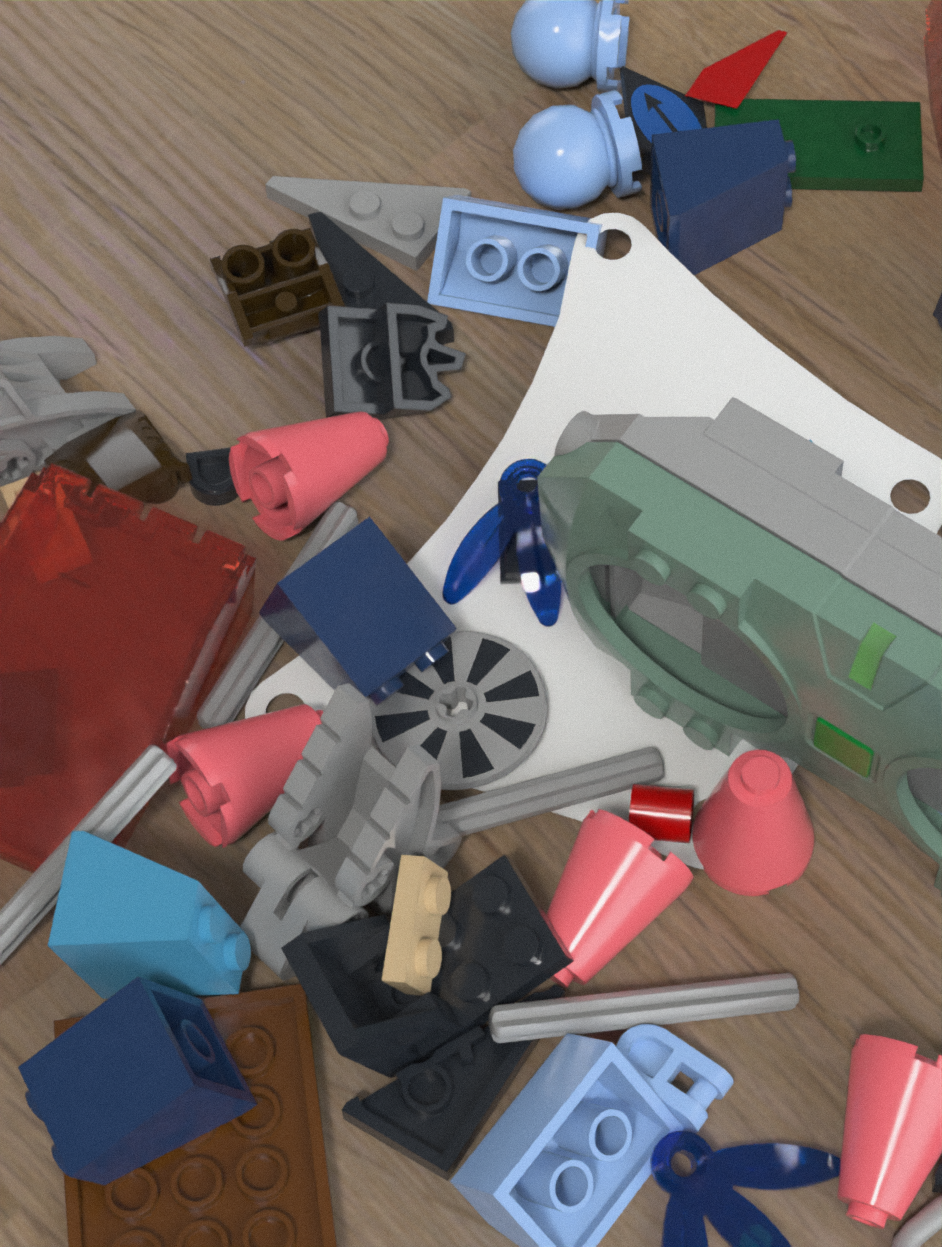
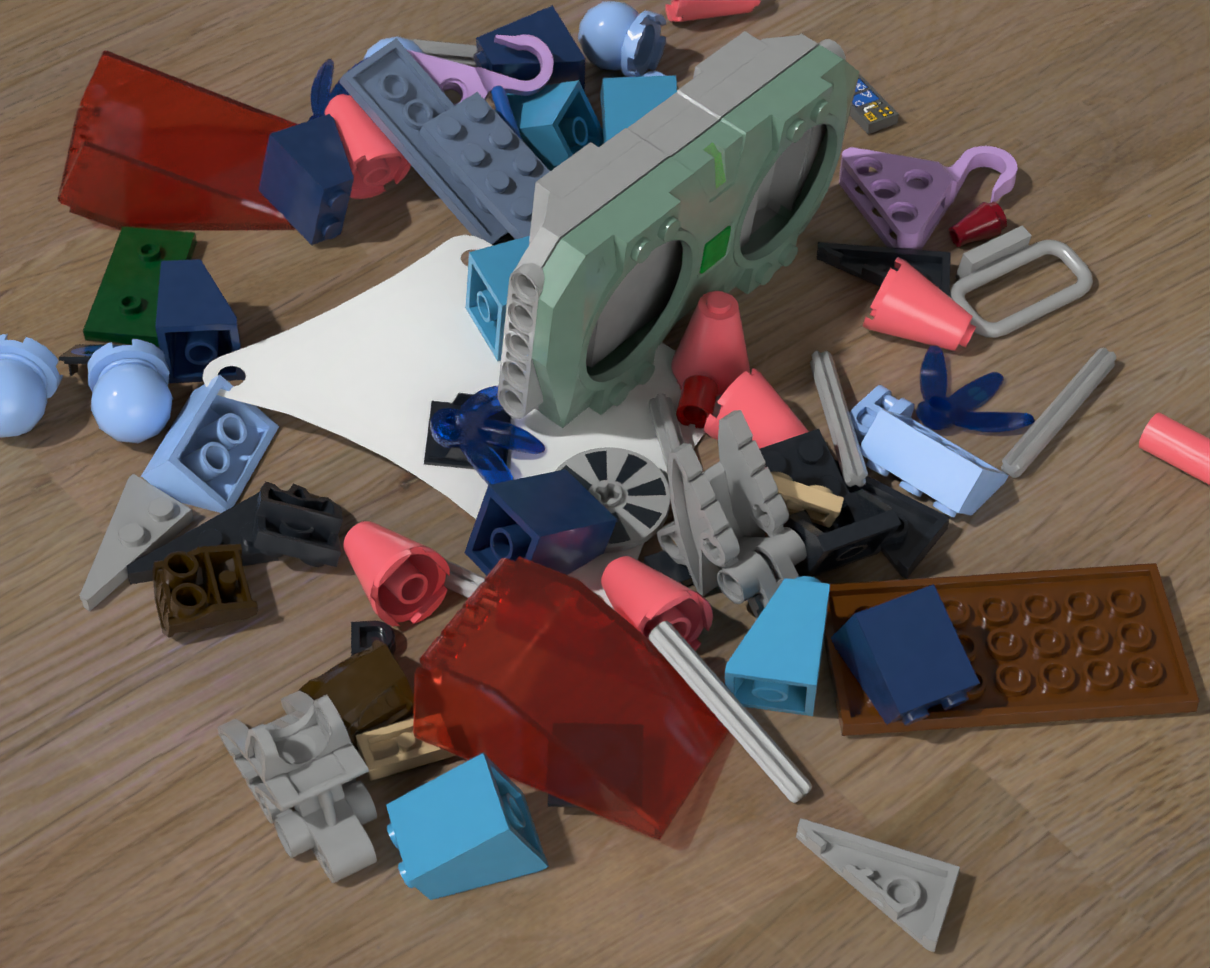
camera: 90 degrees left, 10 degrees down
(733, 76) = (58, 321): red sticker -> none

